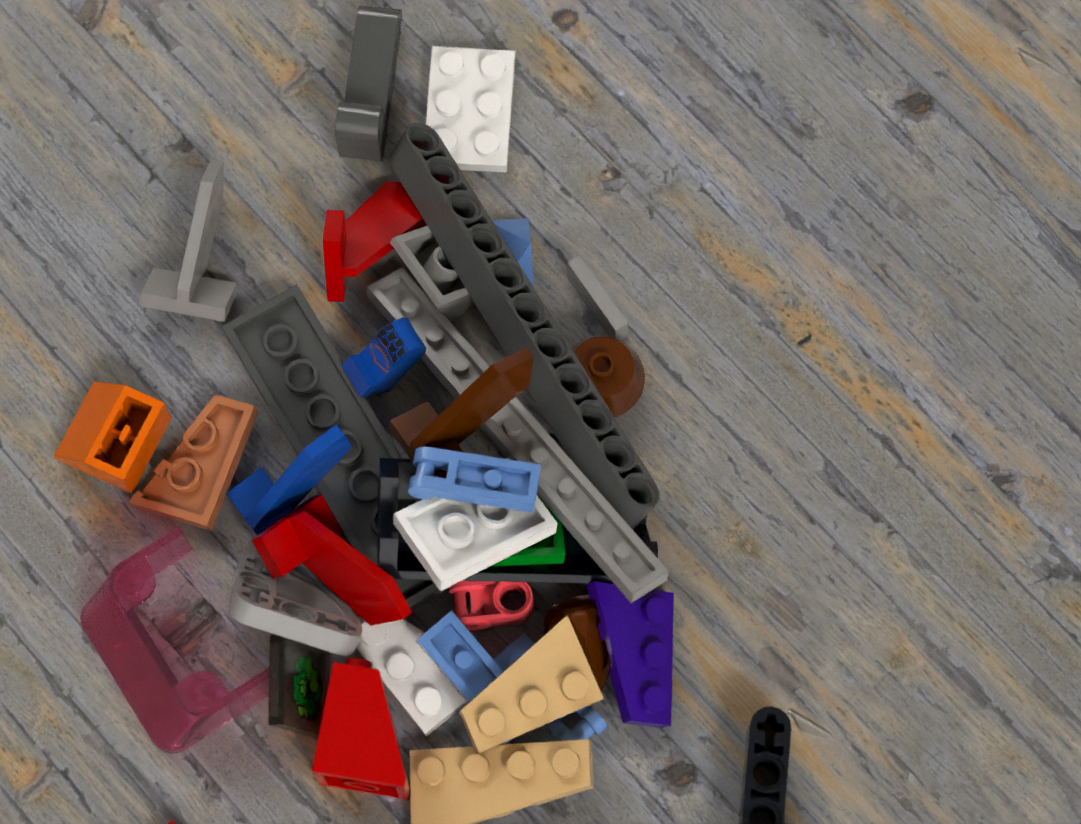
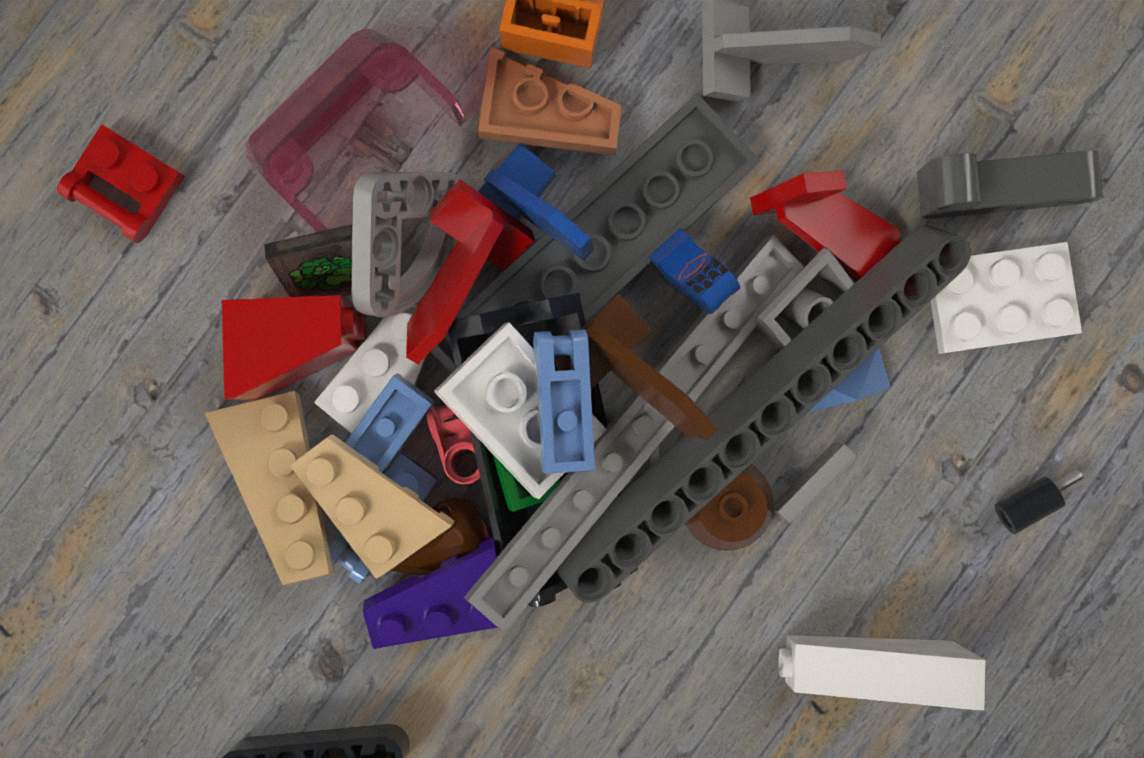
camera: 80 degrees right, 15 degrees up
(654, 118) = (1036, 501): none -> black piece
(774, 273) = (885, 670): none -> white slope

